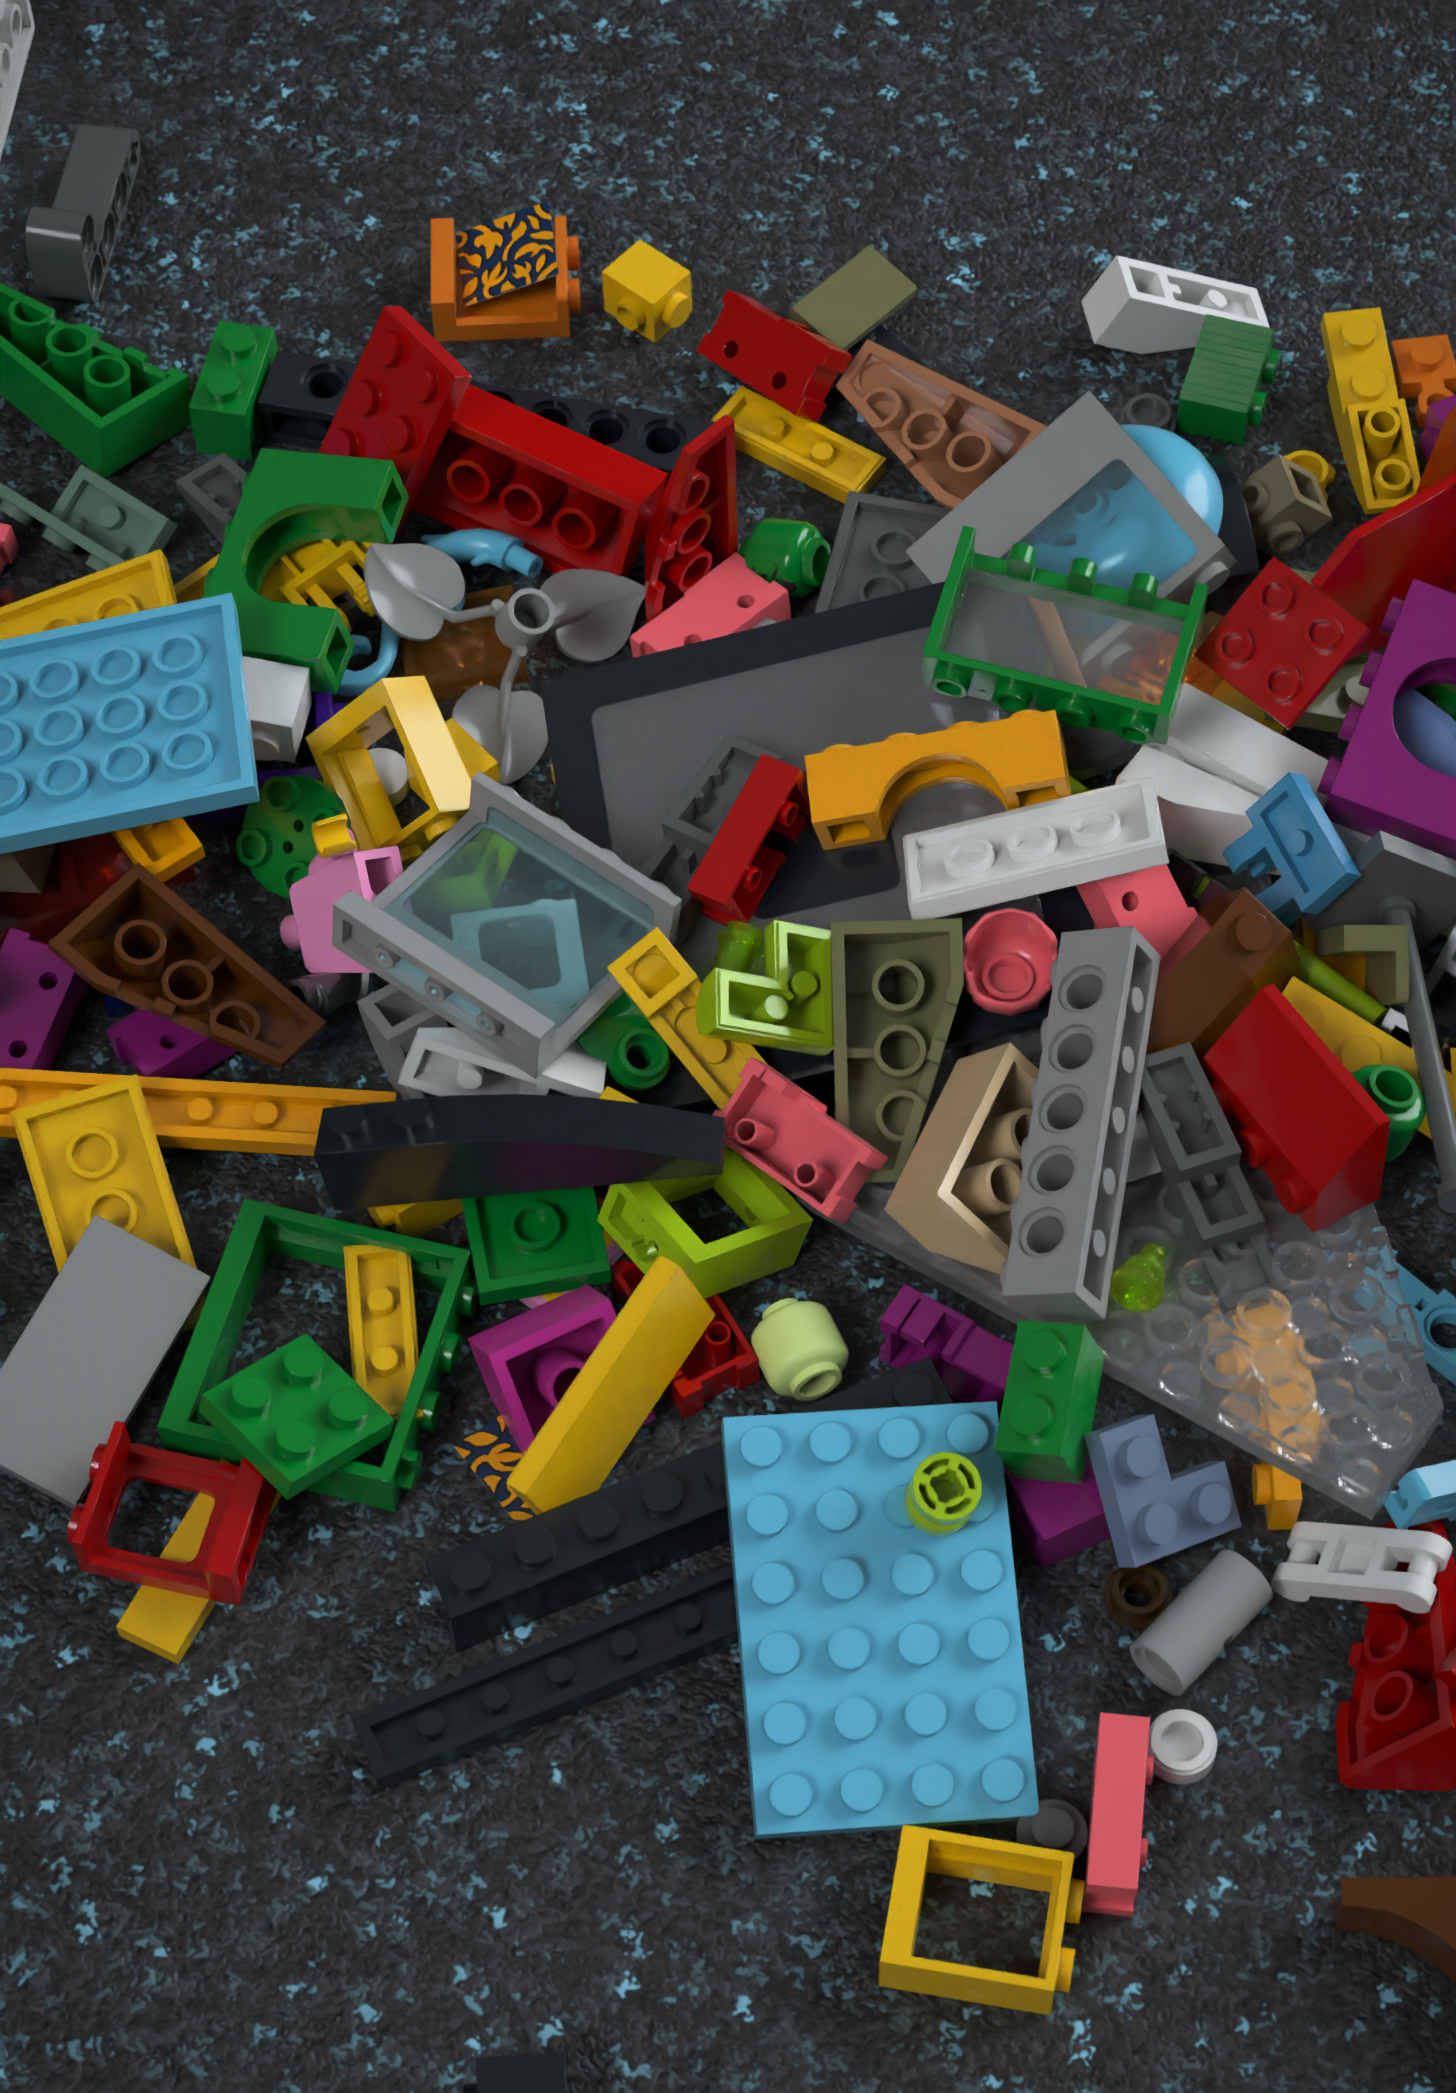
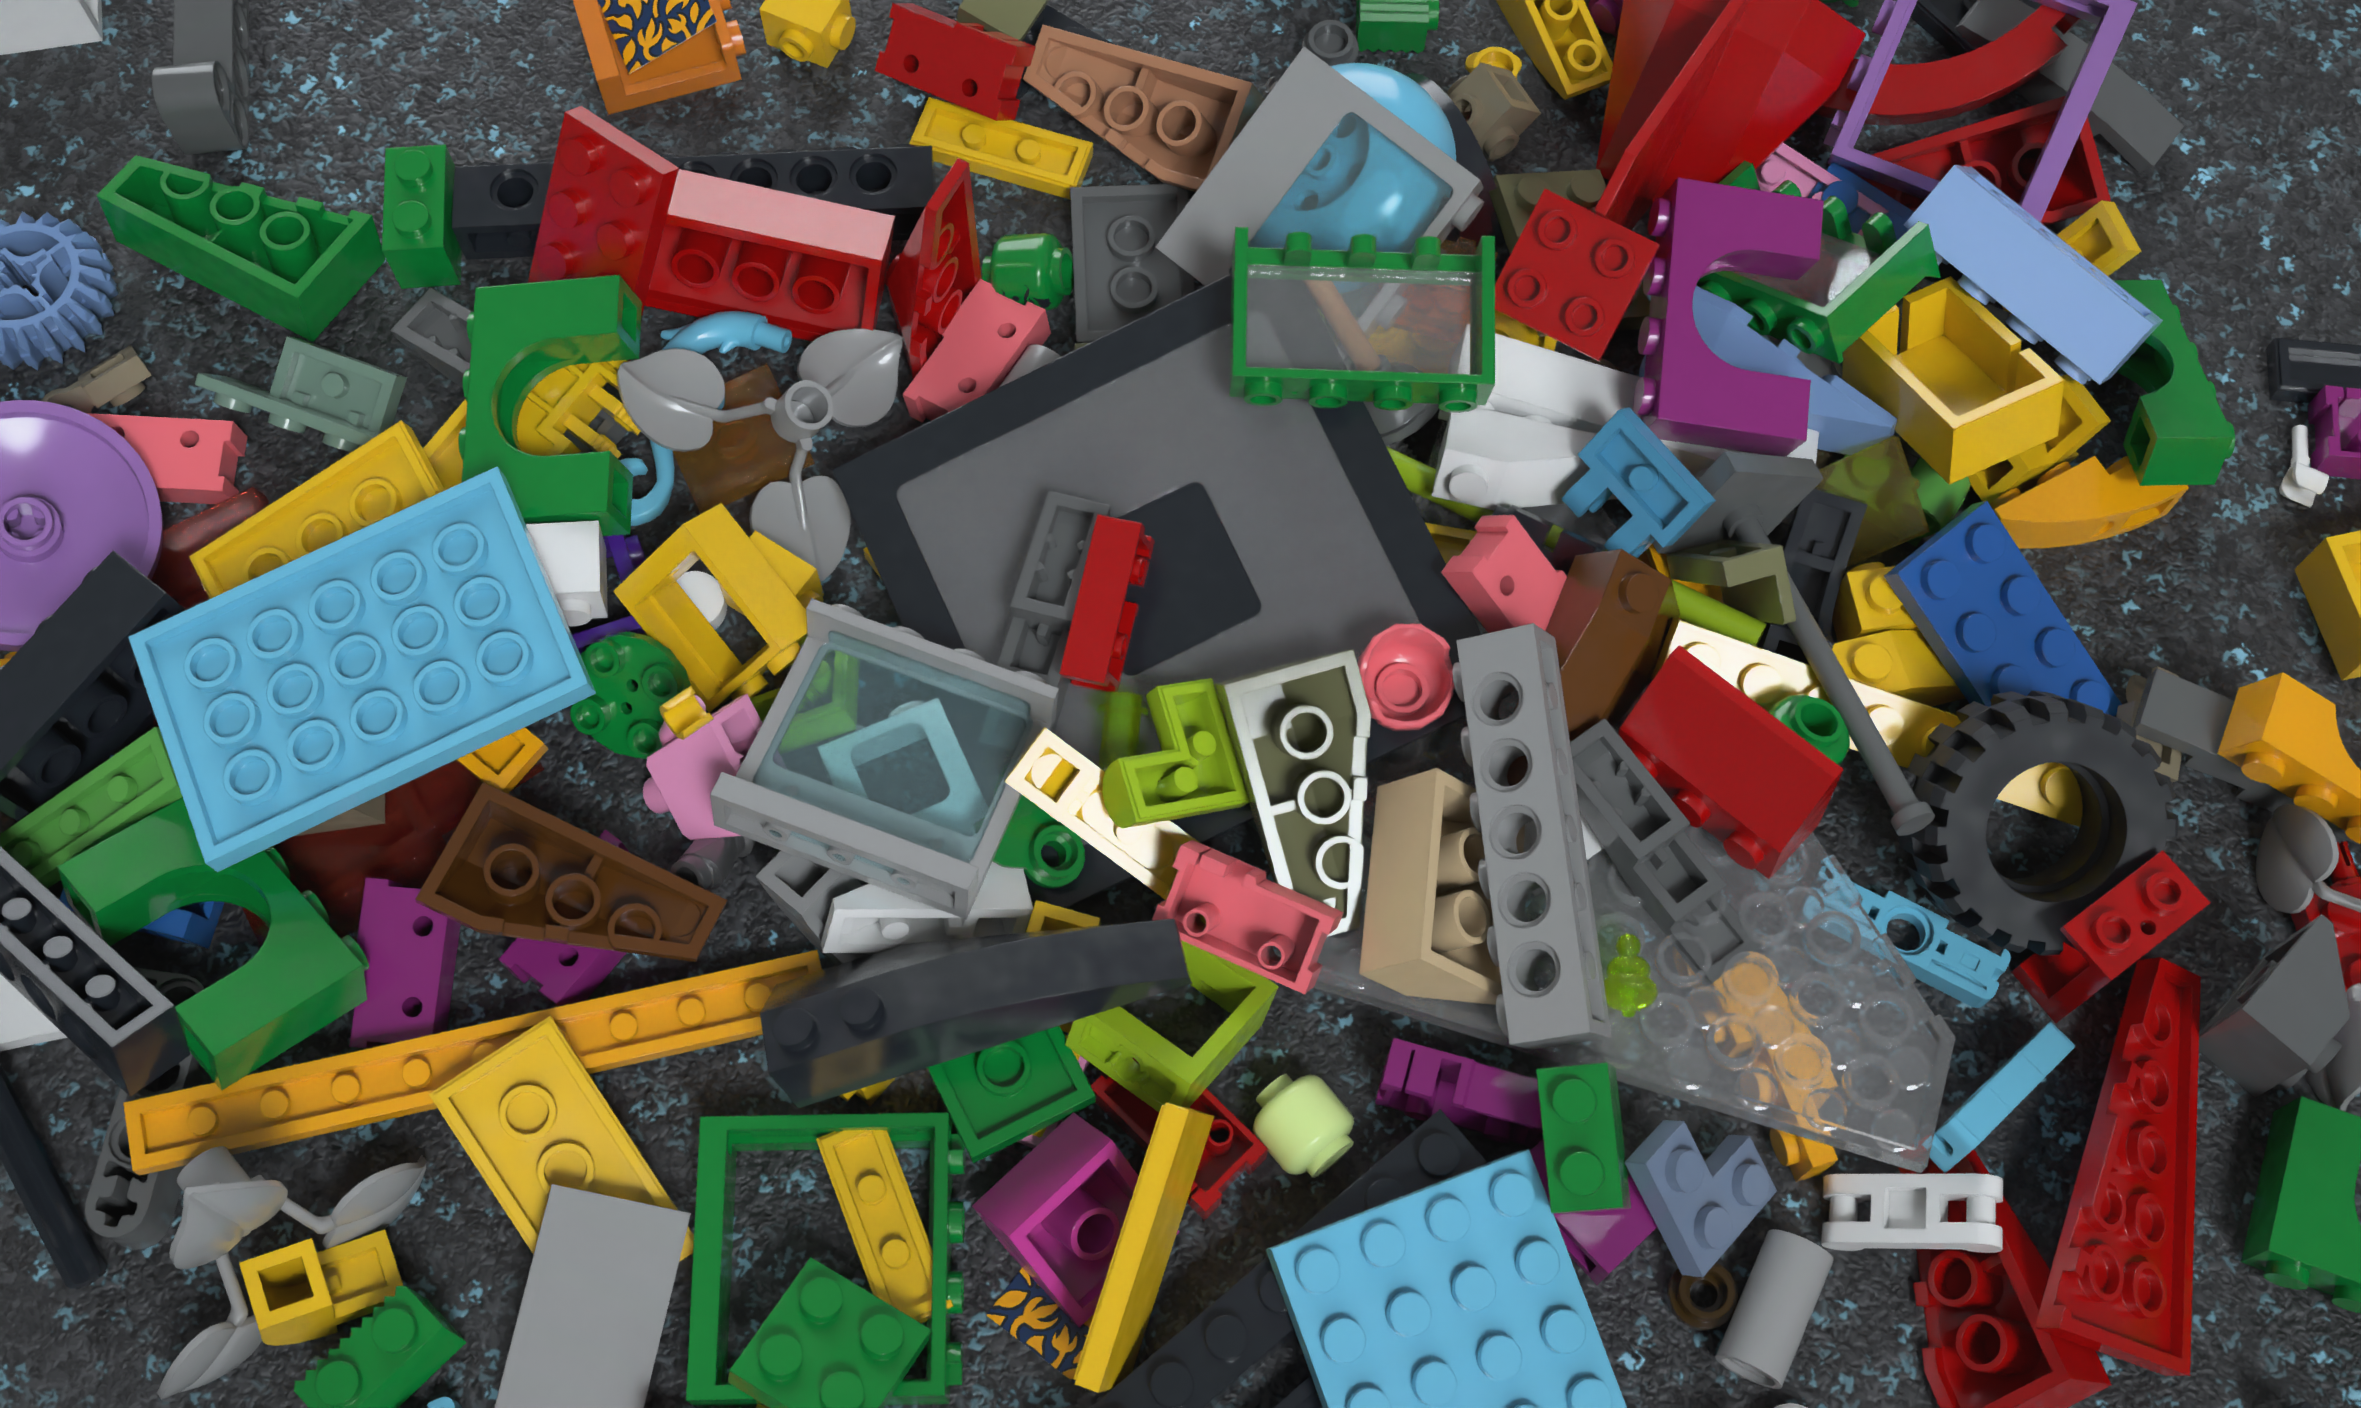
camera: 20 degrees left, 10 degrees up
(864, 786) = (1349, 460): light orange arch -> none
(938, 1508) = (1501, 1276): lime wheel -> none
(1034, 849) = (1399, 554): white tile -> none

